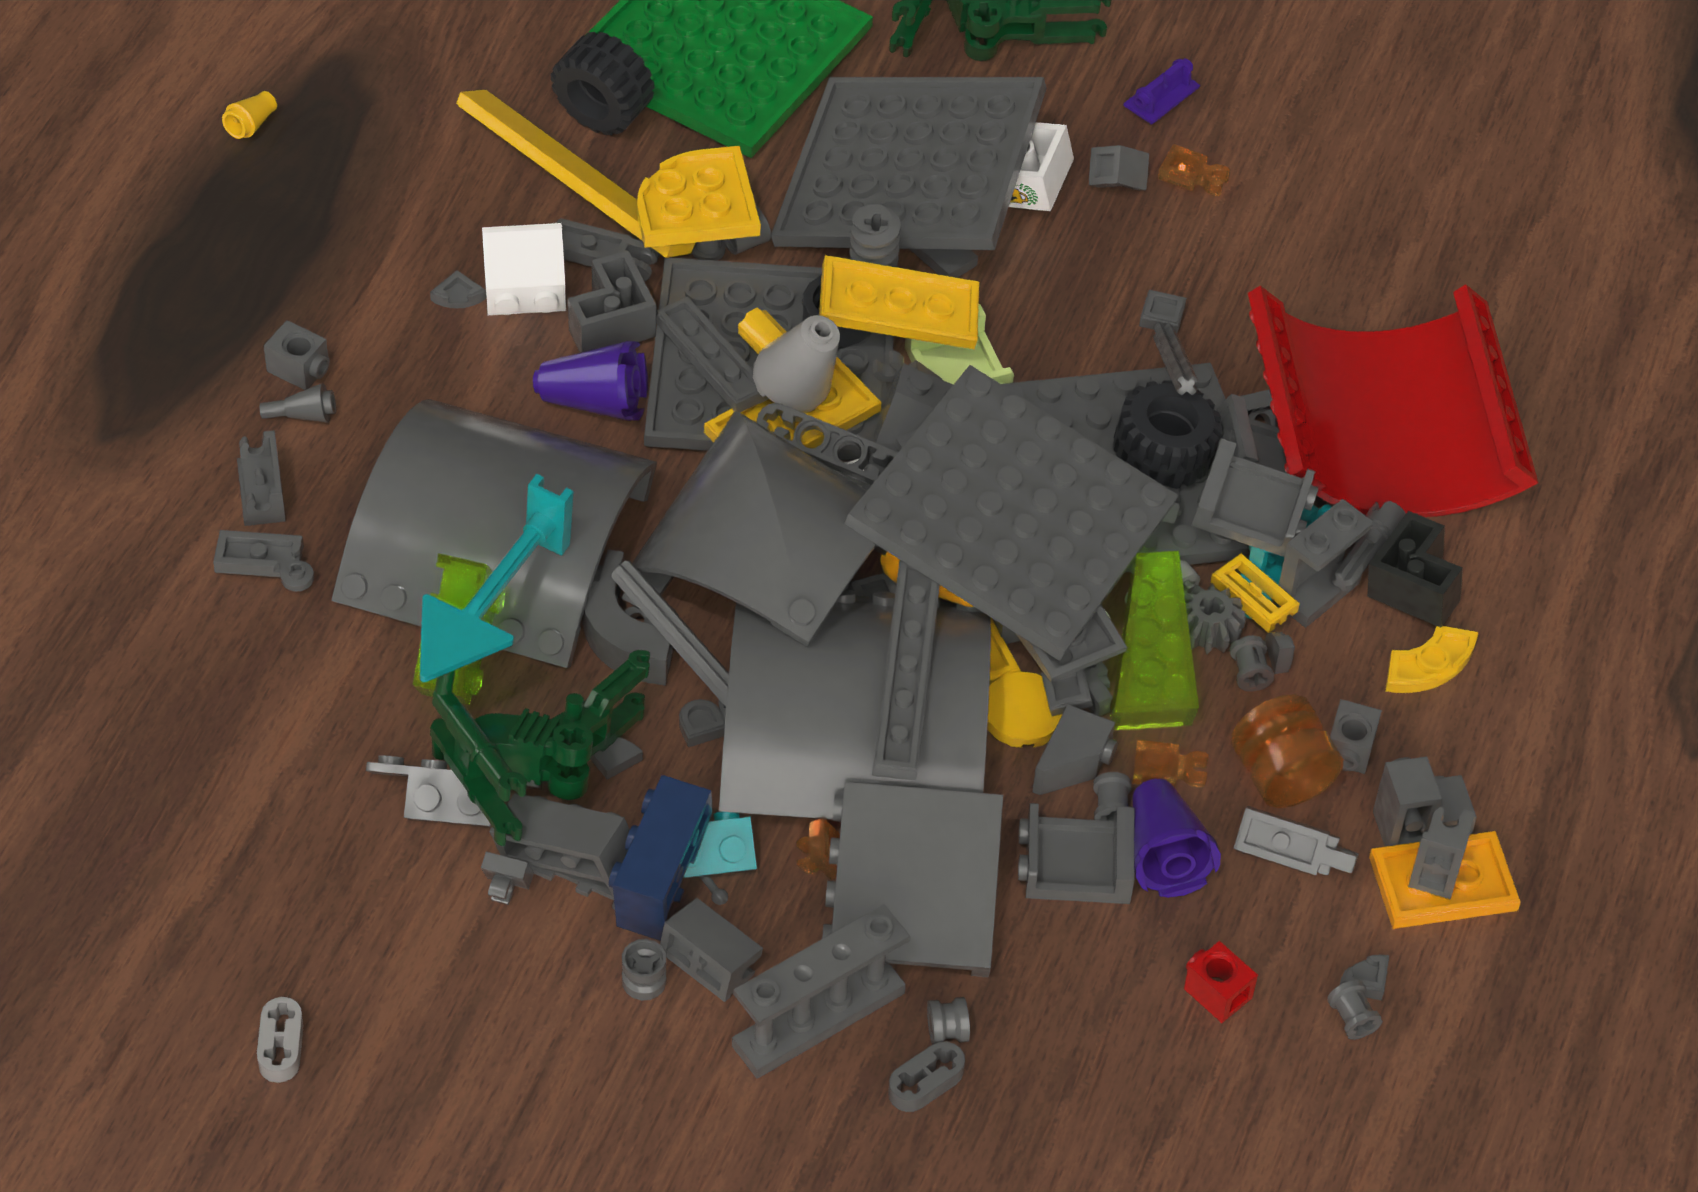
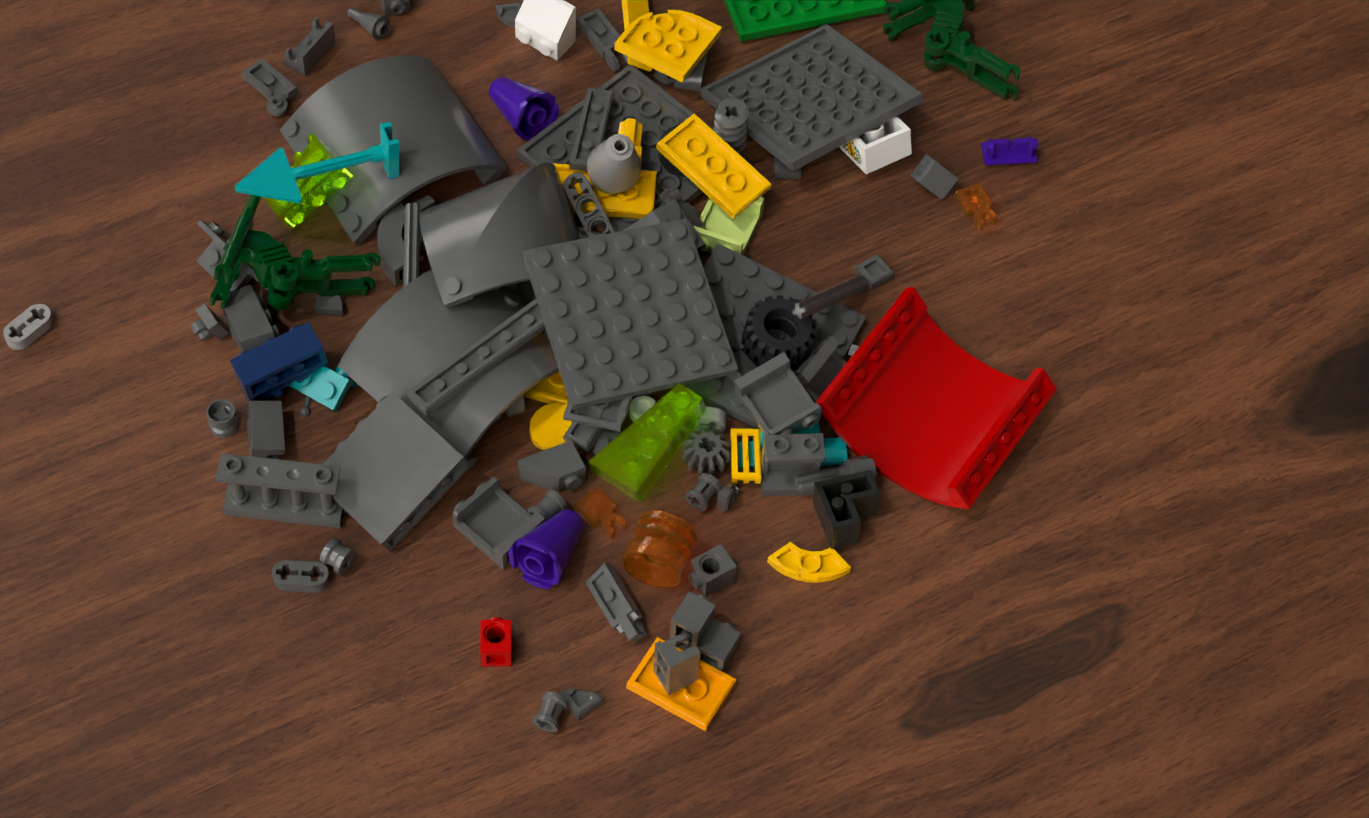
camera: 40 degrees right, 5 degrees up
(615, 309) = (570, 75): dark grey brick -> none

